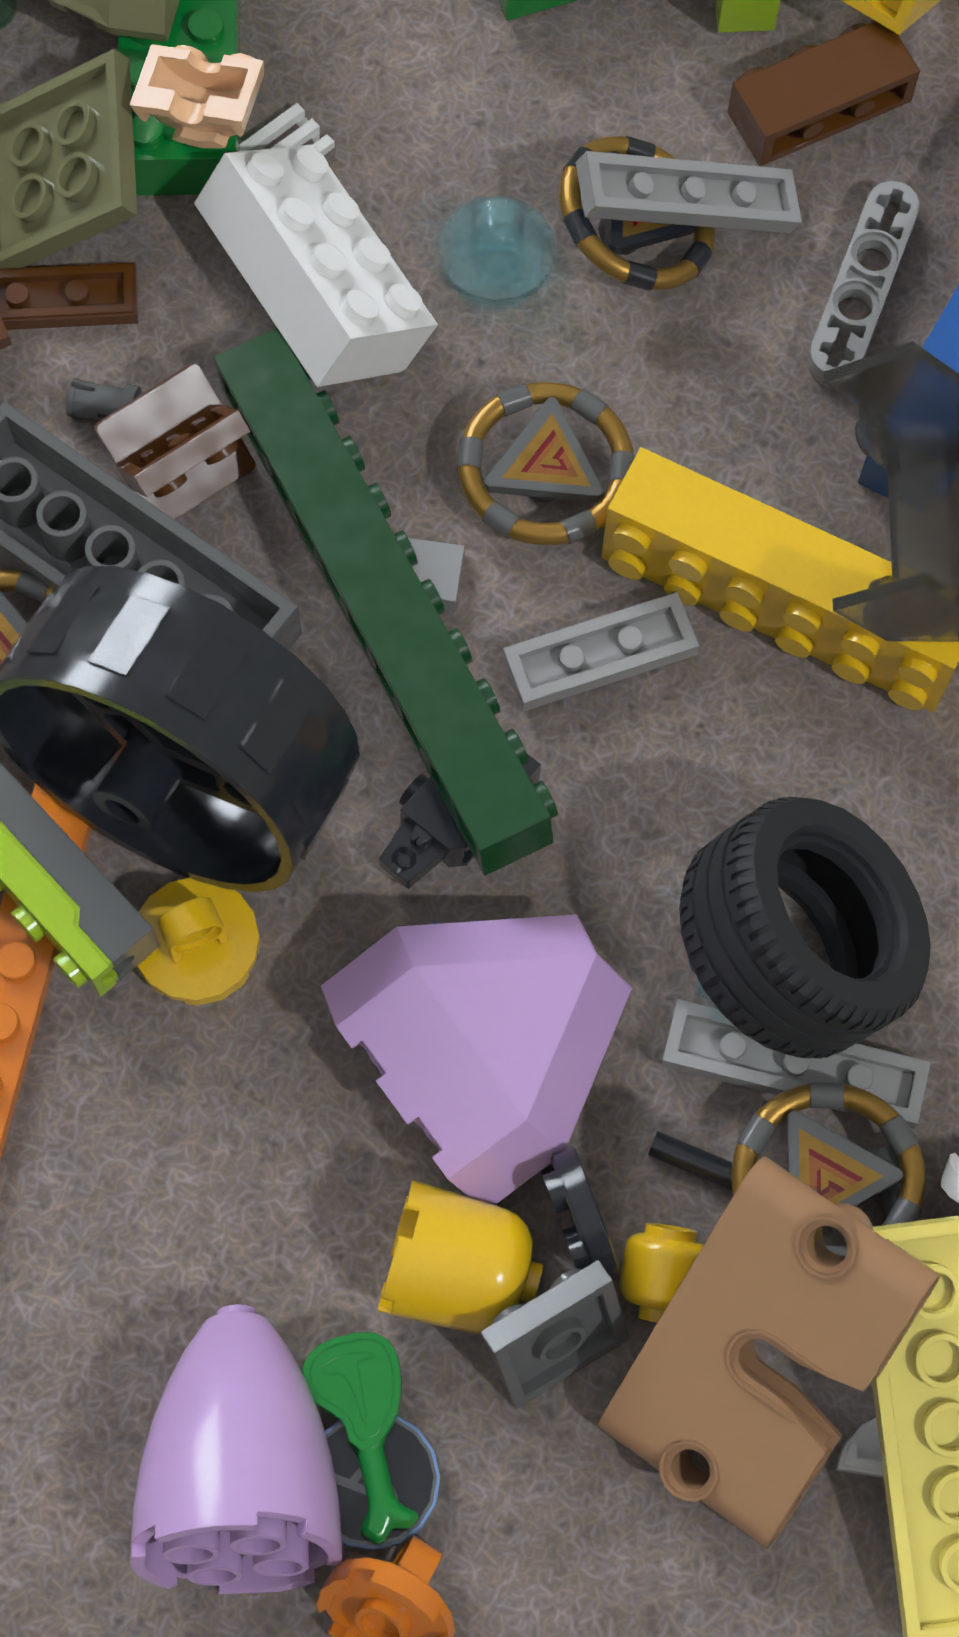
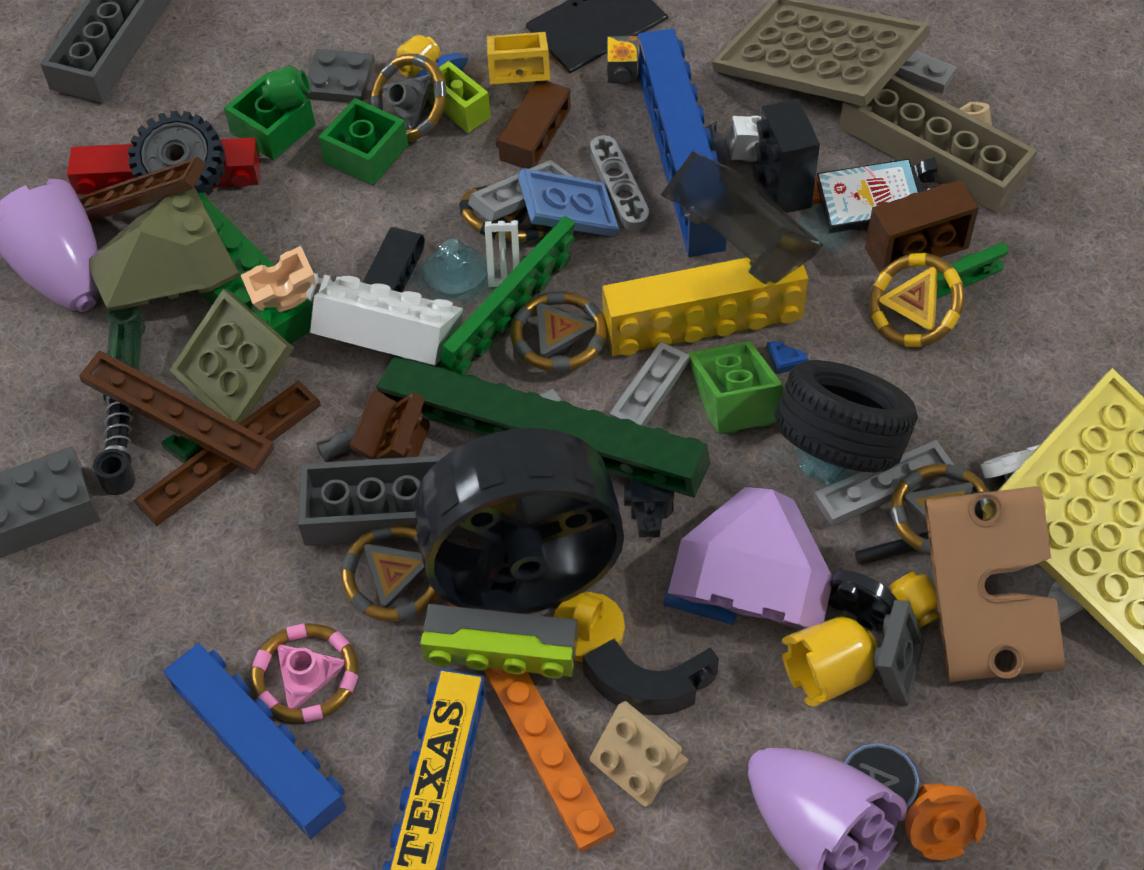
camera: 35 degrees left, 15 degrees down
(91, 1176) = (637, 754): none -> tan bracket
(159, 1049) = (644, 689): none -> black arch
(361, 1386) = (843, 741): green piece -> none
(419, 174) = (396, 259): none -> black beam
(508, 358) = (496, 312): none -> green plate
(591, 242) = (501, 227): none -> white tile
(722, 741) = (736, 386): none -> bright green slope
(743, 264) = (555, 195): none -> medium blue tile
(845, 756) = (784, 357): none -> blue tile

